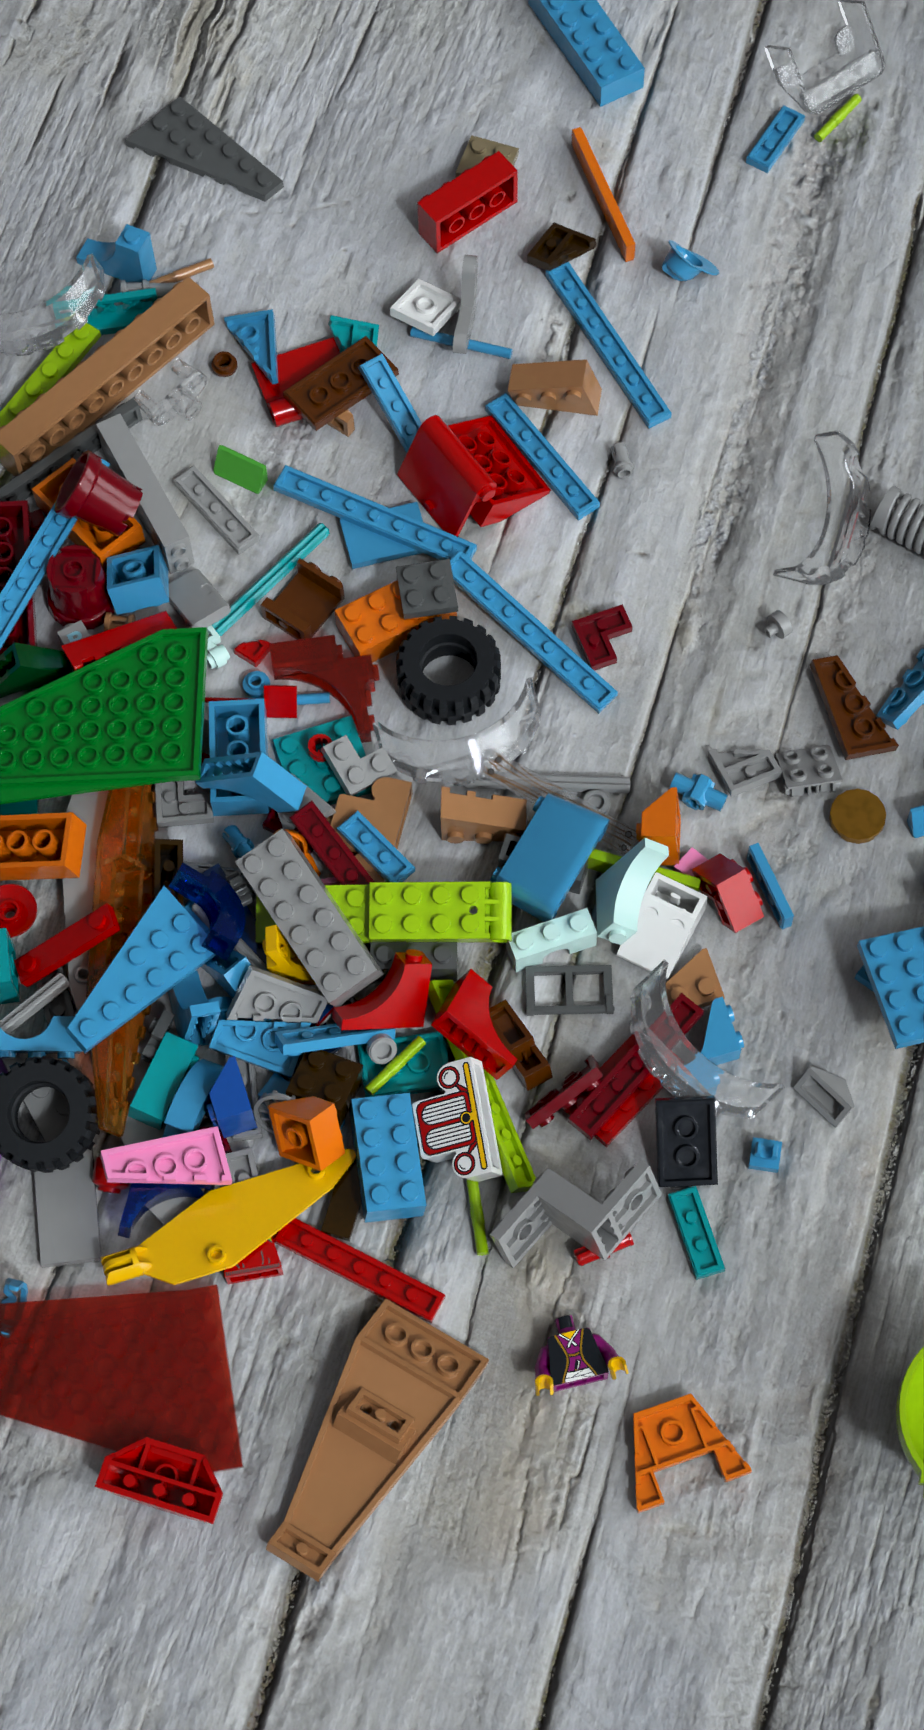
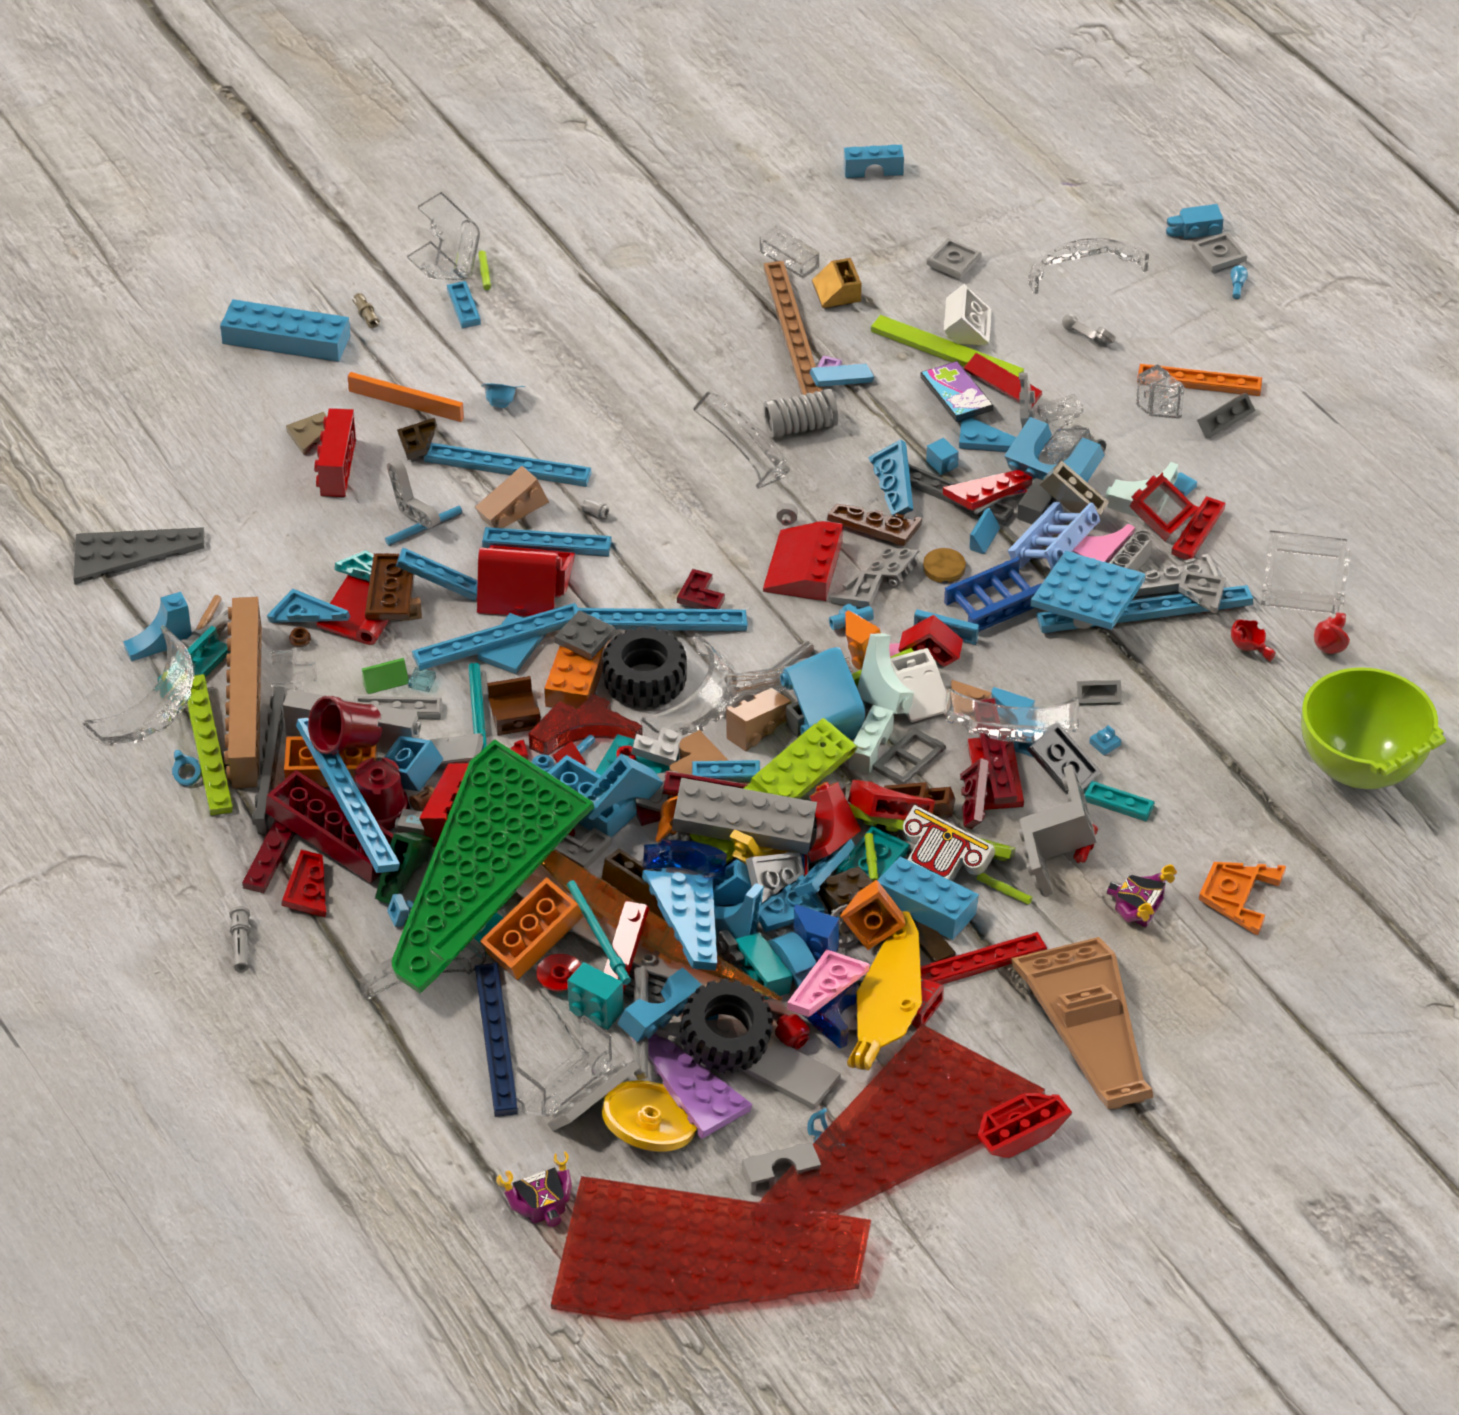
camera: 50 degrees left, 20 degrees down
(37, 955) = (616, 963): none -> teal bar
(237, 841) = (648, 835): dark azure pin -> none
(268, 501) = (422, 679): none -> clear light blue tile
(381, 1048) = (855, 854): light grey tile -> none
(425, 307) = (382, 521): white plate -> none
(681, 72) = (365, 310): none -> dark tan pin
(735, 691) = (805, 560): none -> red slope
(837, 914) = (993, 612): none -> blue fence

